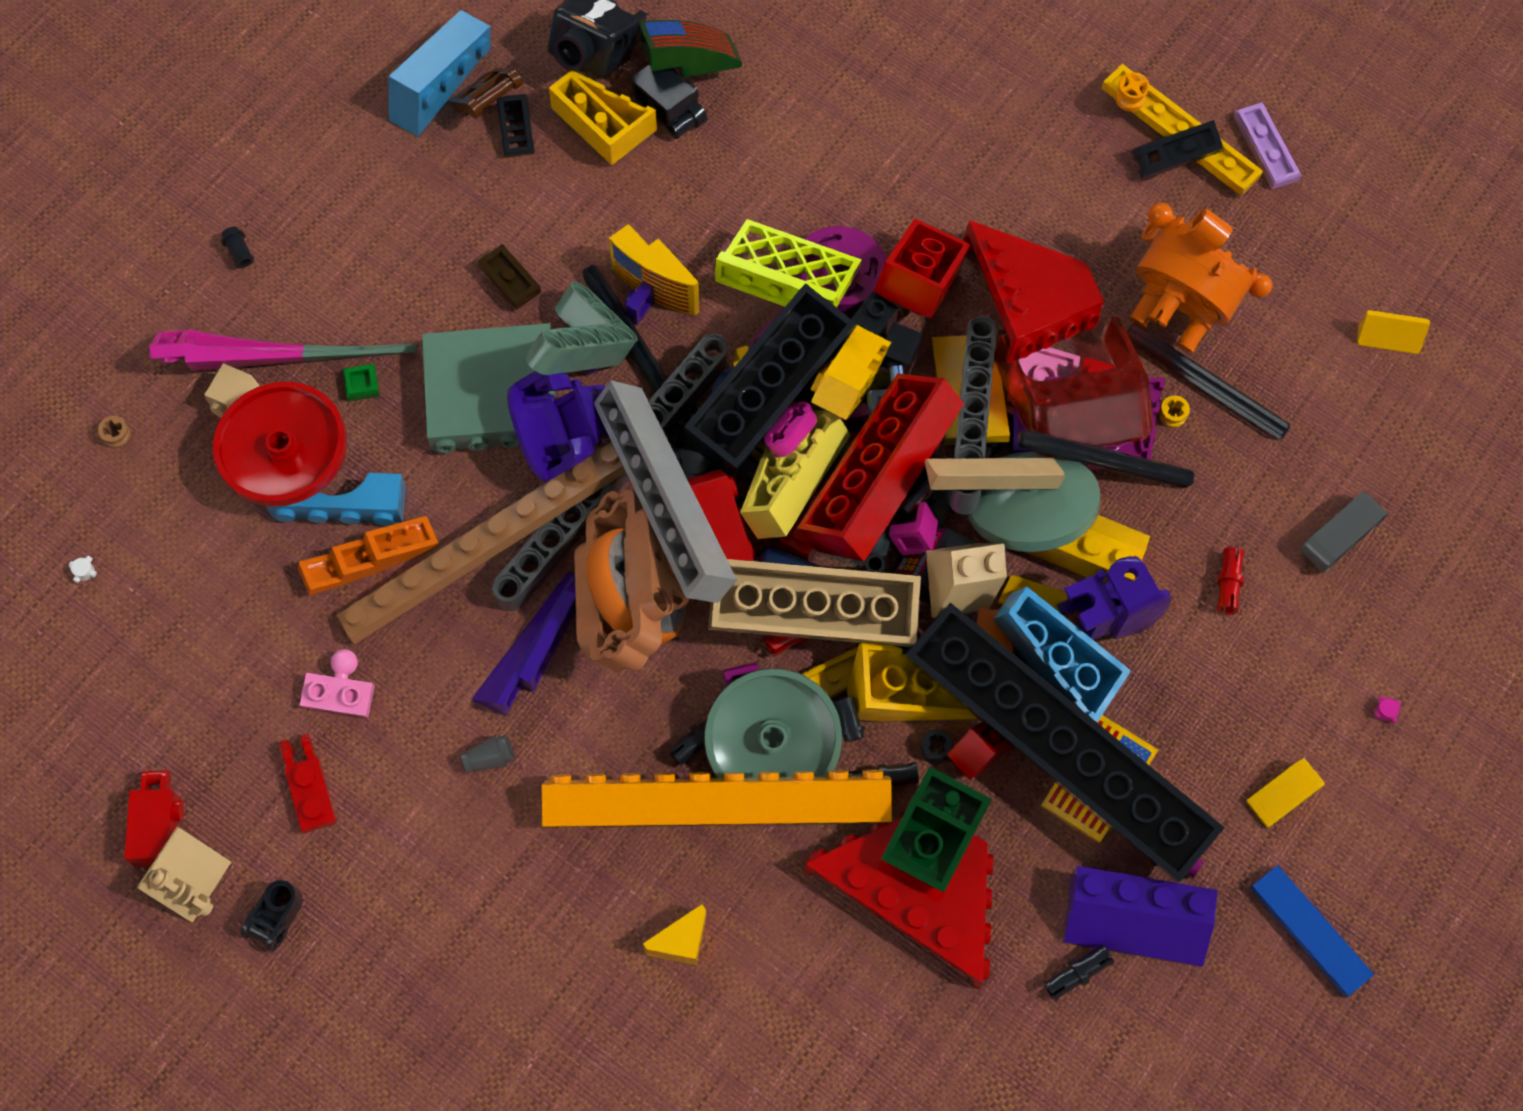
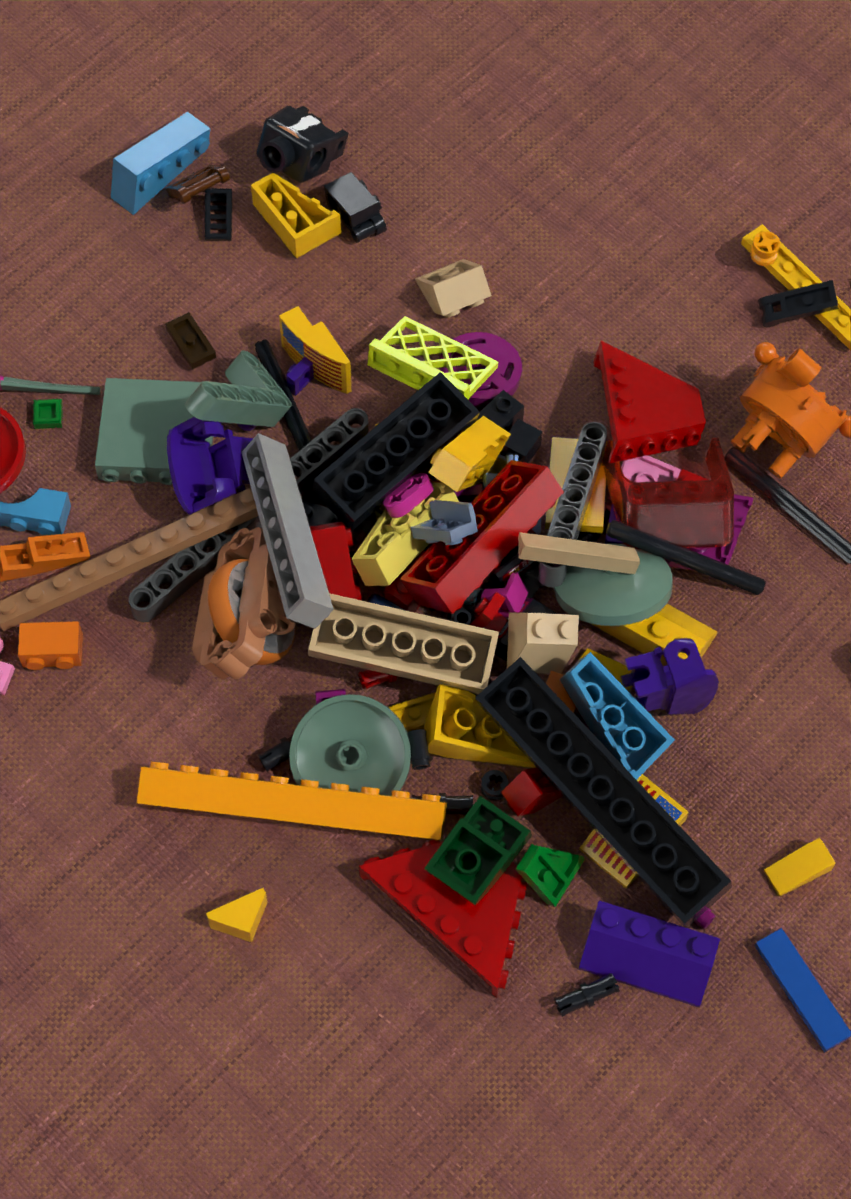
camera: 10 degrees right, 5 degrees down
(411, 654) = (50, 645): none -> orange brick
(490, 754) = (103, 738): dark grey cone -> none
(531, 651) = (154, 659): dark purple wedge -> none
(688, 46) = (379, 164): dark green slope -> none
(795, 177) = (454, 287): none -> tan slope
(842, 458) = (448, 524): none -> sand blue bracket
(900, 554) = (487, 613): none -> red bracket
(921, 268) = (550, 375): red brick -> none
(1015, 838) = (549, 871): none -> green wing
(1174, 421) = (756, 536): yellow bush -> none
(1230, 580) = (782, 678): red pin -> none

